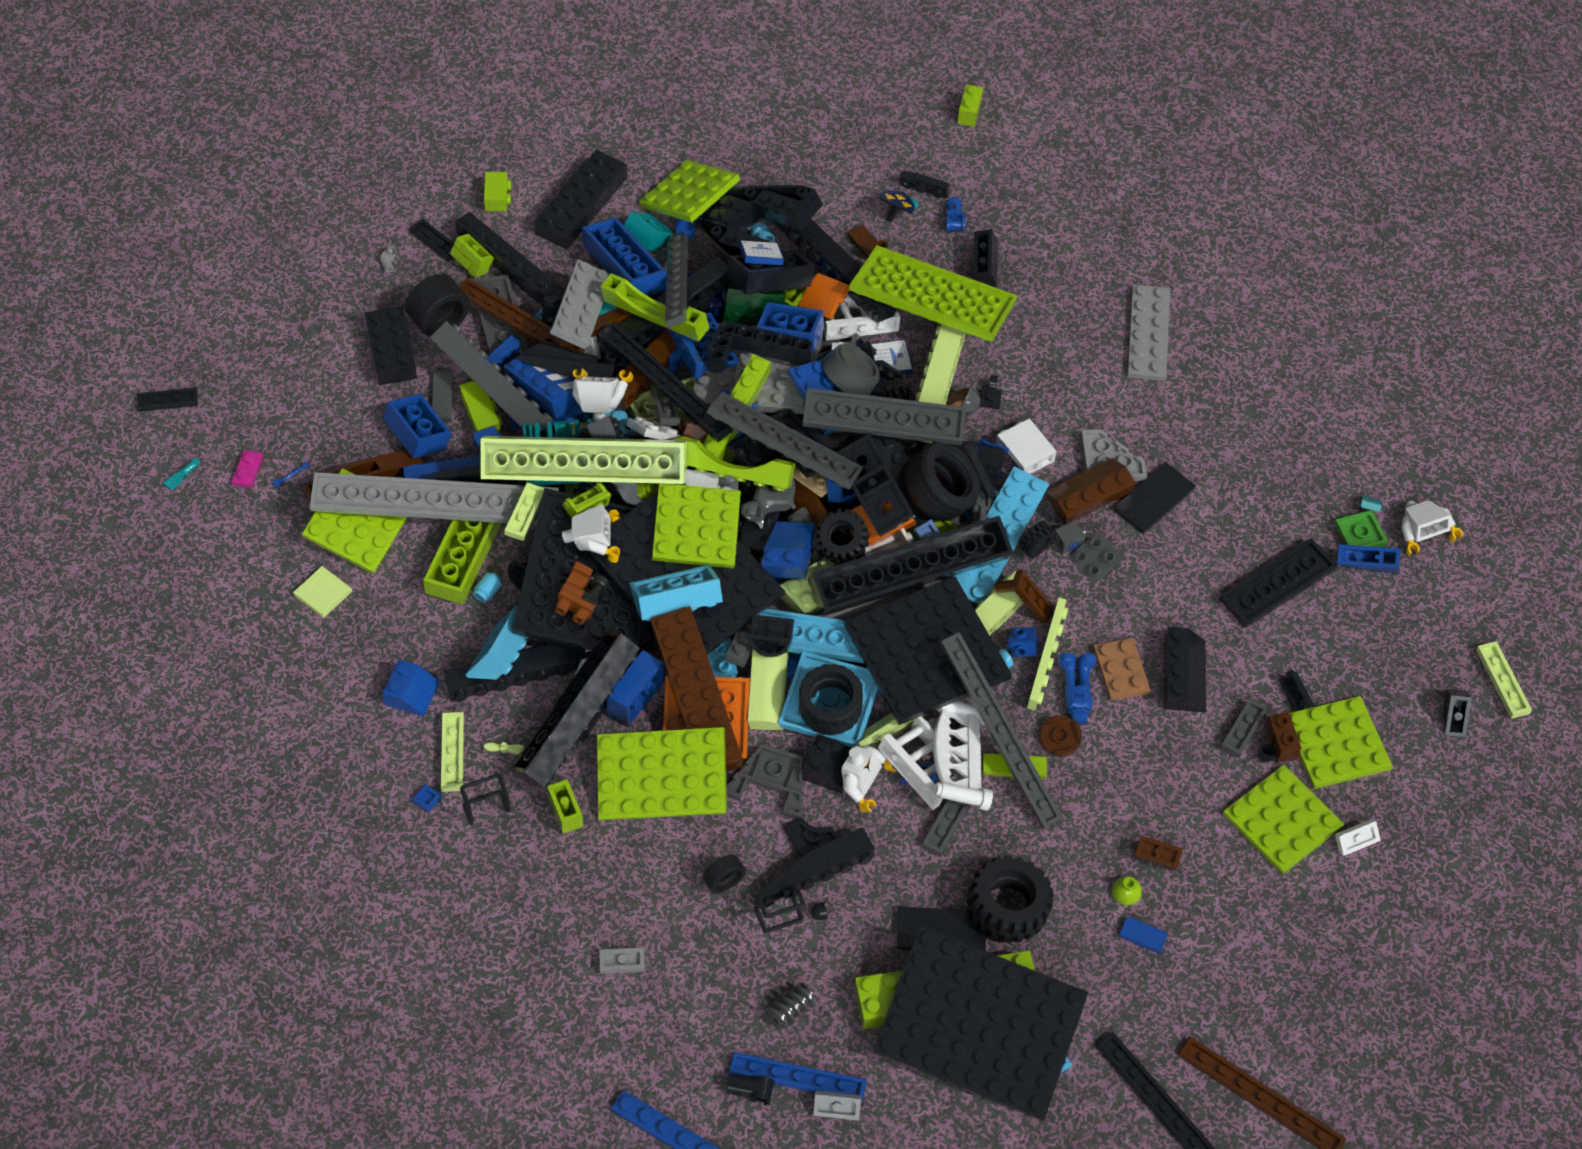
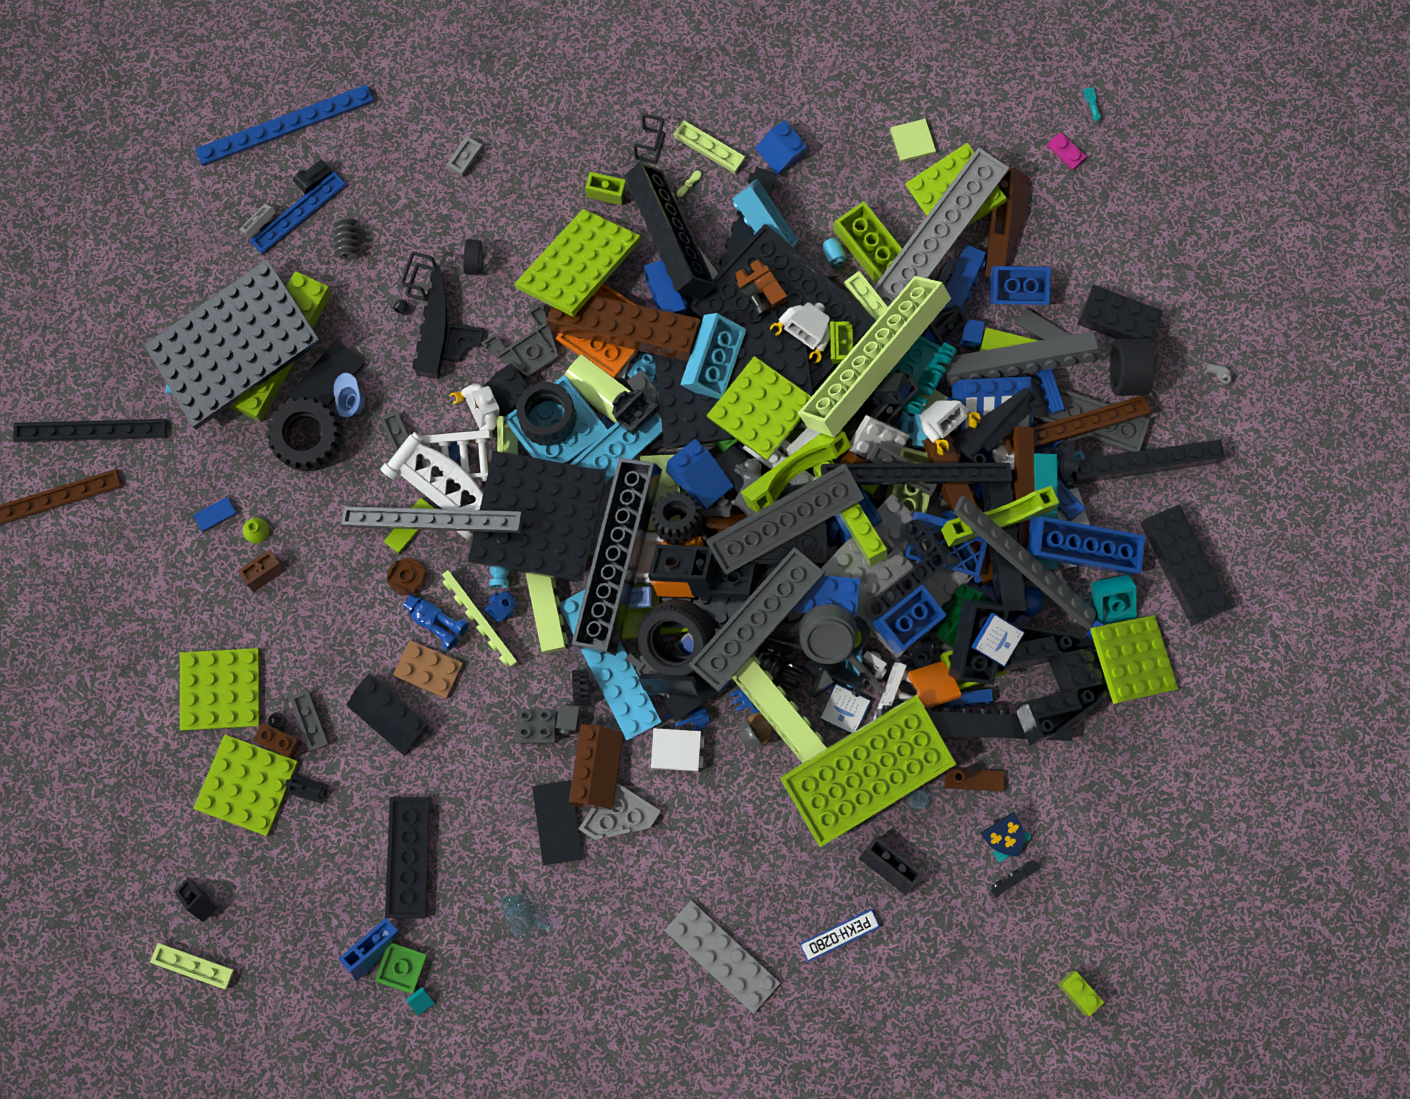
camera: 125 degrees right, 20 degrees up
(167, 399) = (1175, 131): black tile -> none
(277, 483) = (1039, 165): blue hinge -> none
(426, 798) = (685, 110): blue tile -> none
(433, 238) = (1218, 422): black tile -> none
(471, 255) = (1176, 434): lime brick -> none
(496, 191) = (1240, 501): lime brick -> none
(580, 305) = (1050, 468): light grey plate -> none
(761, 230) = (1047, 691): medium azure wheel -> none
(945, 890) = (348, 396): none -> medium blue piece
(954, 216) = (959, 878): blue connector -> none
(990, 396) = (748, 764): black plate -> none
(1028, 593) = (532, 634): reddish brown piece -> none
(1064, 269) = (839, 935): none -> tile
(1251, 472) = (520, 920): none -> clear light blue animal
(1357, 837) = (161, 729): white plate -> none
(1426, 521) = (367, 1029): white torso -> none

